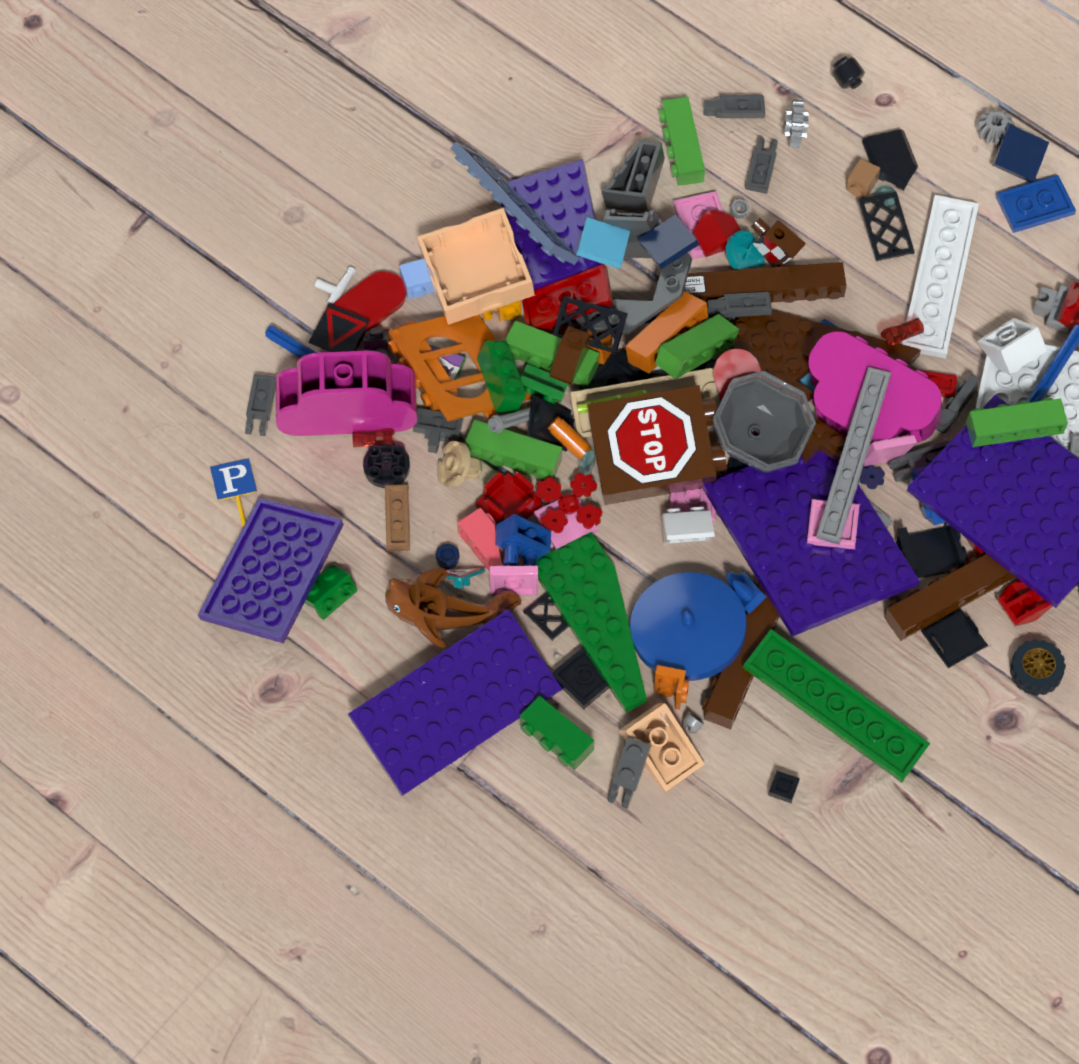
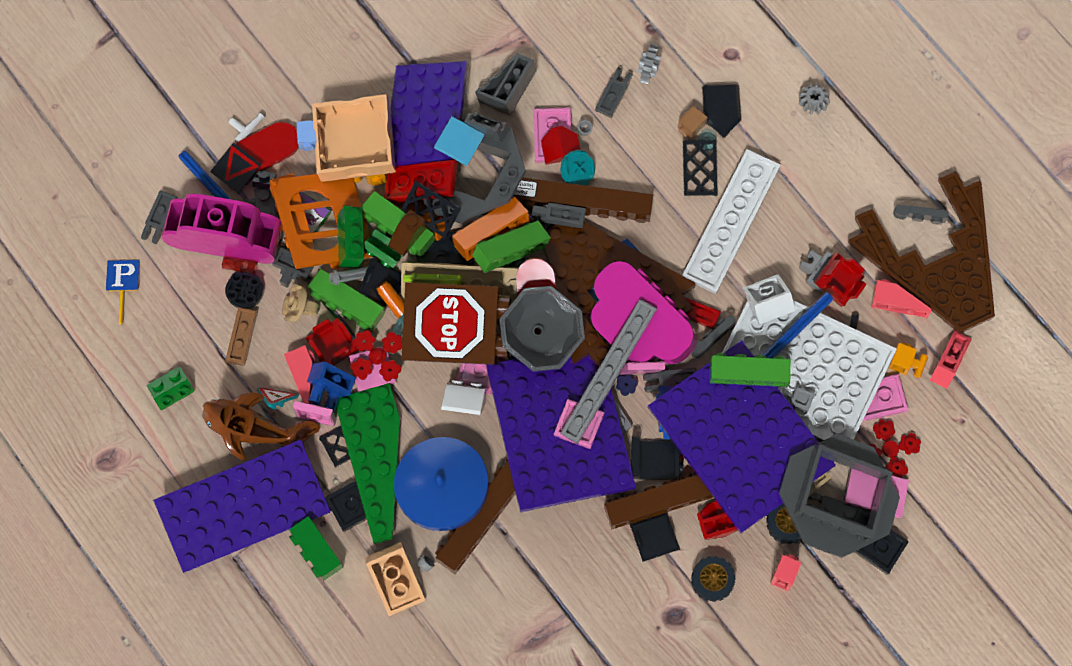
camera: 15 degrees right, 10 degrees up
(271, 570) = (128, 361): dark purple plate -> none
(447, 556) = (271, 378): dark blue tile -> none
(514, 204) = (399, 90): sand blue plate -> none
(629, 769) = (362, 594): dark grey hinge -> none
(668, 241) = (510, 152): dark blue tile -> none
(671, 682) = (415, 530): orange bracket -> none
(682, 141) = (554, 58): bright green brick -> none
(735, 106) = (607, 36): dark grey hinge -> none
(746, 590) = (495, 463): blue tile -> none
(776, 242) = (603, 166): reddish brown torso -> none
(783, 787) = (482, 634): black plate -> none
(836, 705) = (540, 577): green plate -> none
(848, 73) = (706, 25): black head -> none
(904, 331) = (687, 265): clear red bar -> none
(1020, 153) = (827, 127): dark blue tile -> none
(1035, 203) = (828, 173): blue tile -> none

